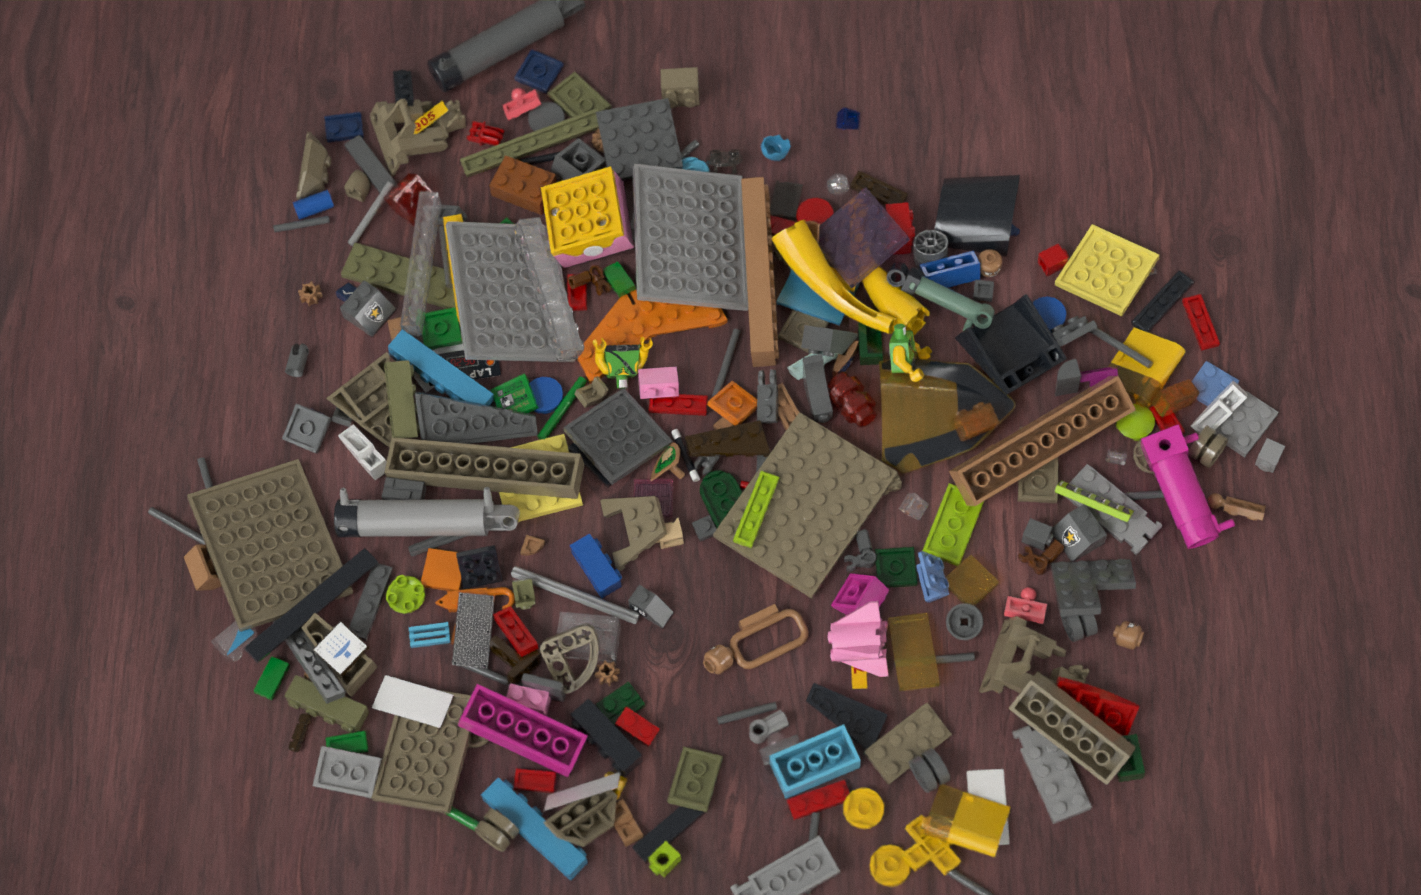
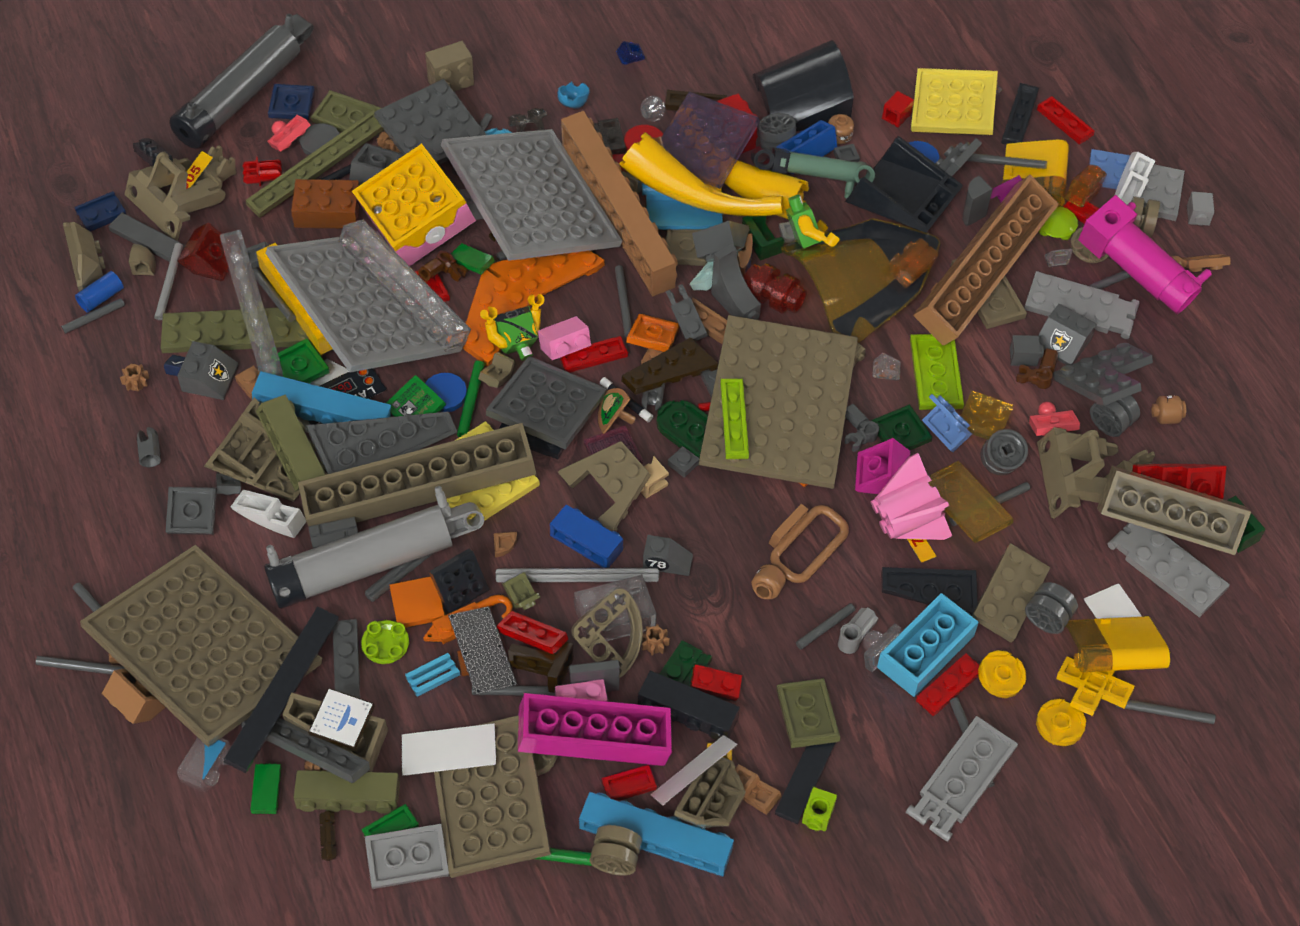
camera: 30 degrees left, 10 degrees down
(1094, 501) = (1066, 298): lime tile -> none

